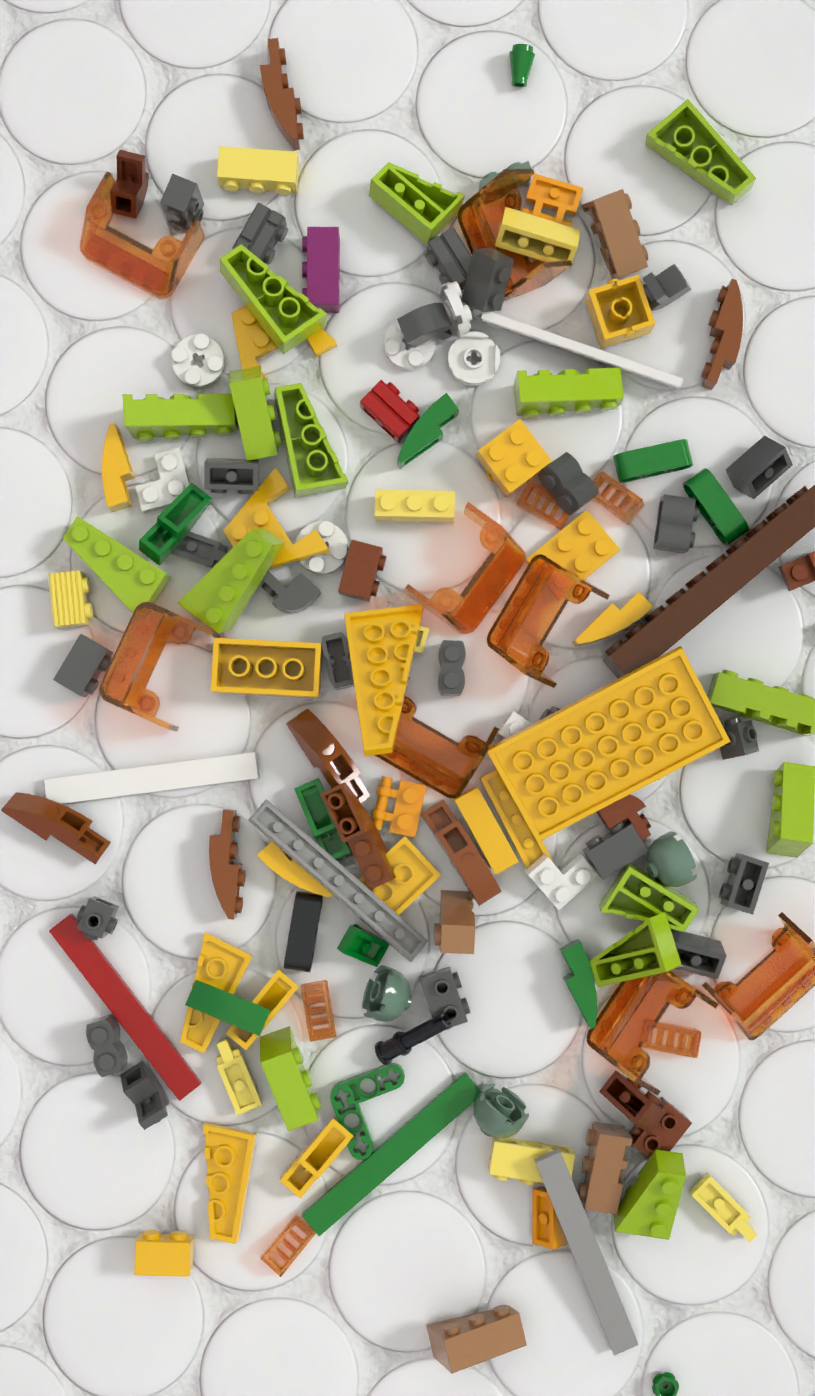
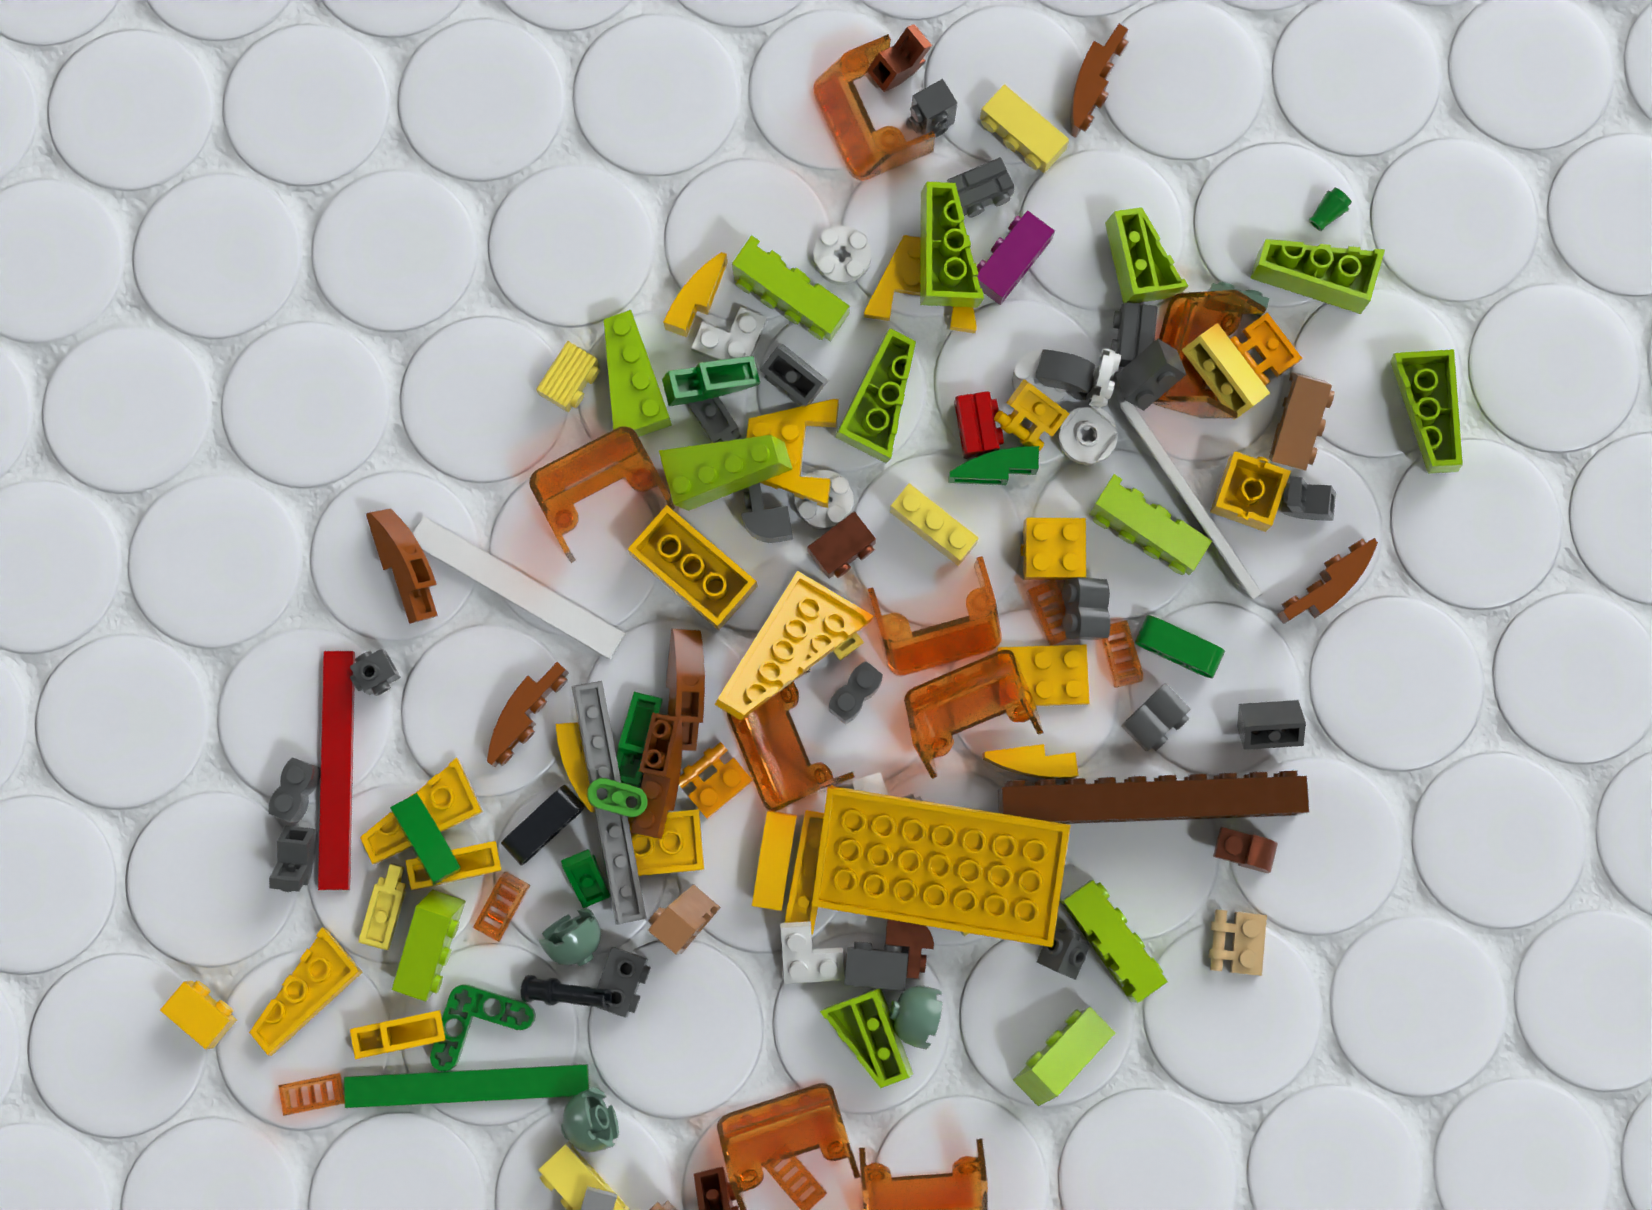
camera: 40 degrees right, 5 degrees down
(84, 666) = (535, 444): dark grey brick -> none
(254, 413) = (855, 336): lime wedge -> none
(337, 654) = (763, 600): dark grey brick -> none
(342, 875) = (616, 797): none -> bright green plate
(424, 365) = (1037, 408): none -> yellow plate
(461, 852) = (737, 863): dark orange slope -> none
(550, 115) = (1320, 272): none -> lime wedge
(581, 980) = (754, 1062): green slope -> none
(639, 954) = (823, 1073): lime wedge -> none
(699, 954) = (874, 1116): dark grey brick -> none
(716, 506) = (1205, 731): green beam -> none
(743, 883) = (969, 1088): dark grey brick -> none

